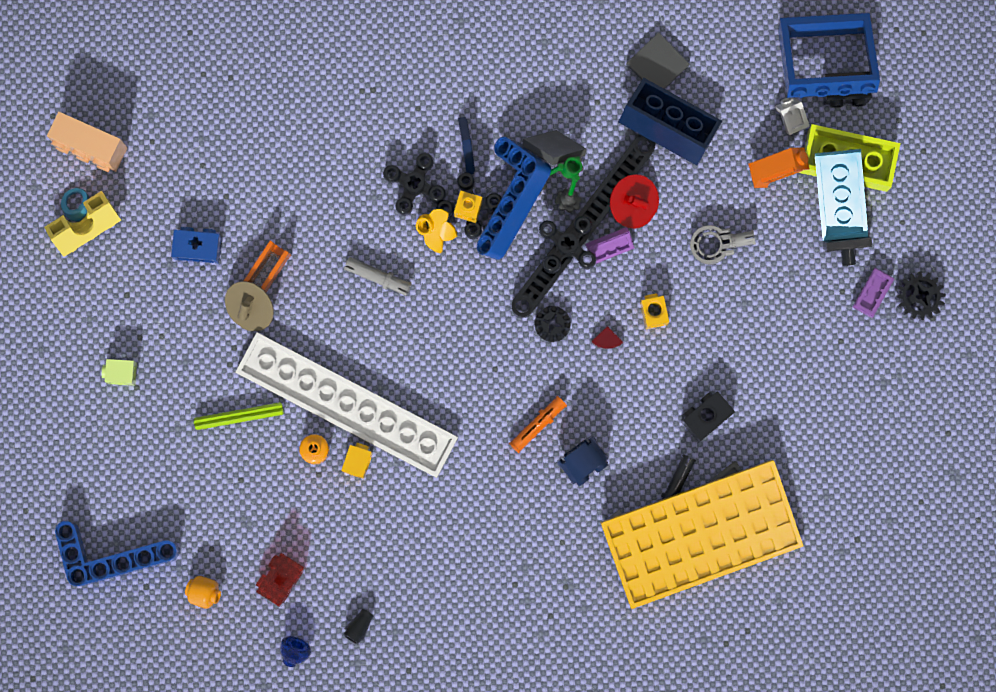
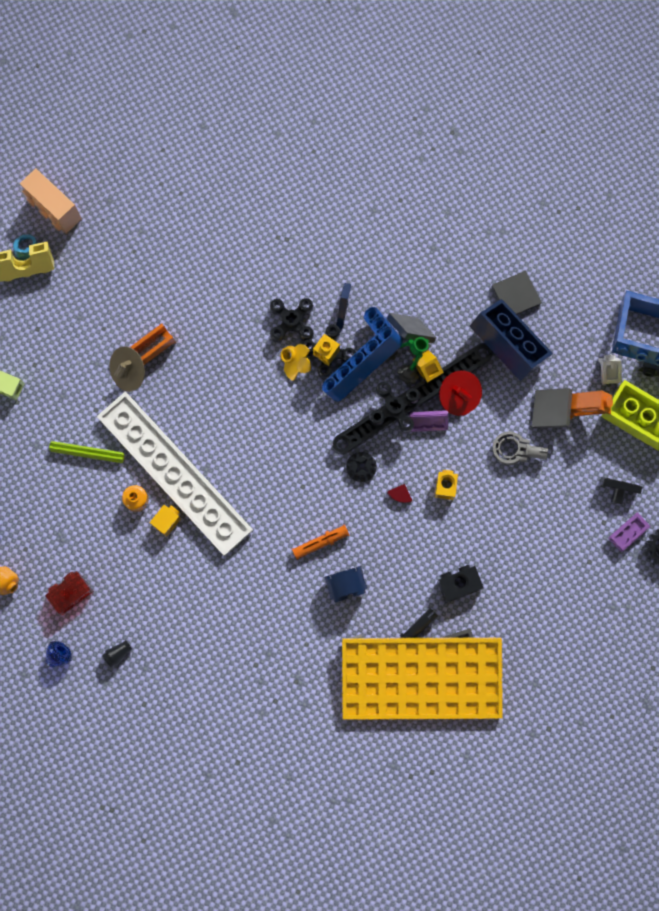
camera: 20 degrees right, 5 degrees down
(184, 251) = (112, 316): blue brick -> none
(380, 277) = (243, 387): light grey pin -> none
(589, 185) = (428, 366): none -> yellow brick
(742, 183) = (552, 408): none -> dark grey tile
(841, 194) = (630, 443): plate -> none

